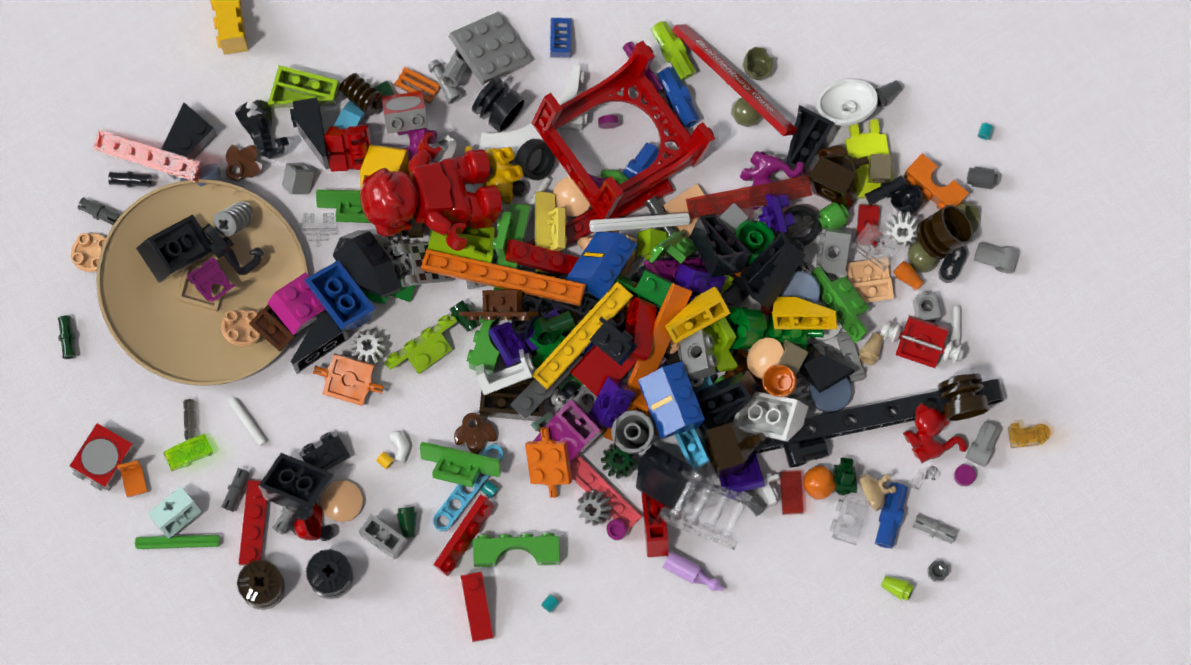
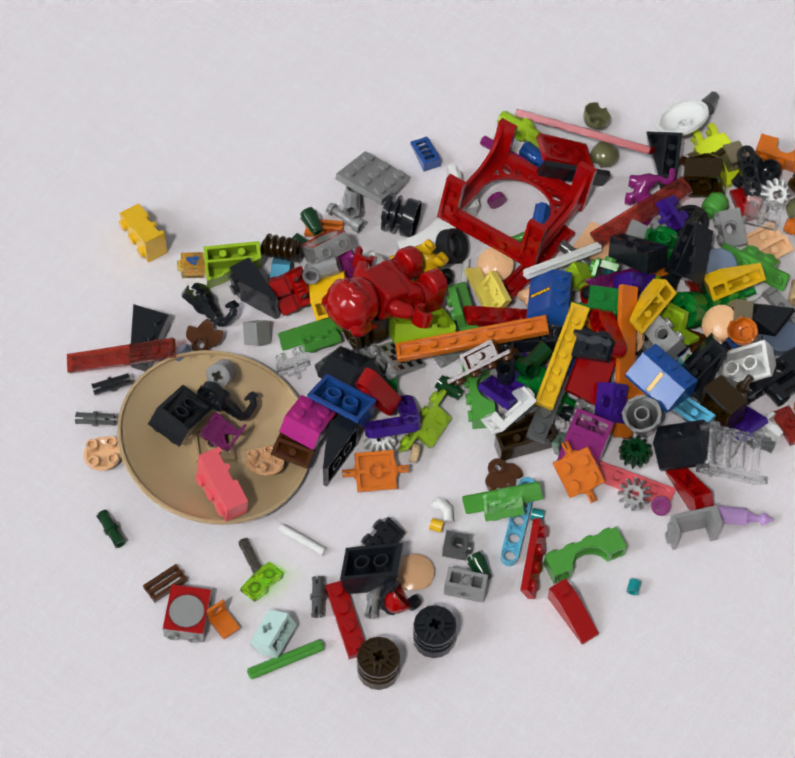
camera: 20 degrees left, 15 degrees down
(77, 412) = (183, 579): none -> reddish brown tile
(181, 342) = (219, 485): none -> coral wedge
(262, 76) = (191, 265): none -> clear yellow brick
(379, 139) = (322, 269): none -> light grey piece
(382, 299) = (376, 387): none -> red beam
(387, 484) = (453, 538): none -> dark grey brick
(397, 374) = (414, 454): none -> tan tile
(399, 338) = (407, 421): none -> dark purple beam
(405, 74) = (311, 220): none -> dark green cone
(637, 560) = (693, 520): none -> light grey panel
(691, 121) = (567, 171): none -> black tile
(701, 96) = (562, 150): none -> red plate
(892, 181) = (753, 165): none -> black beam

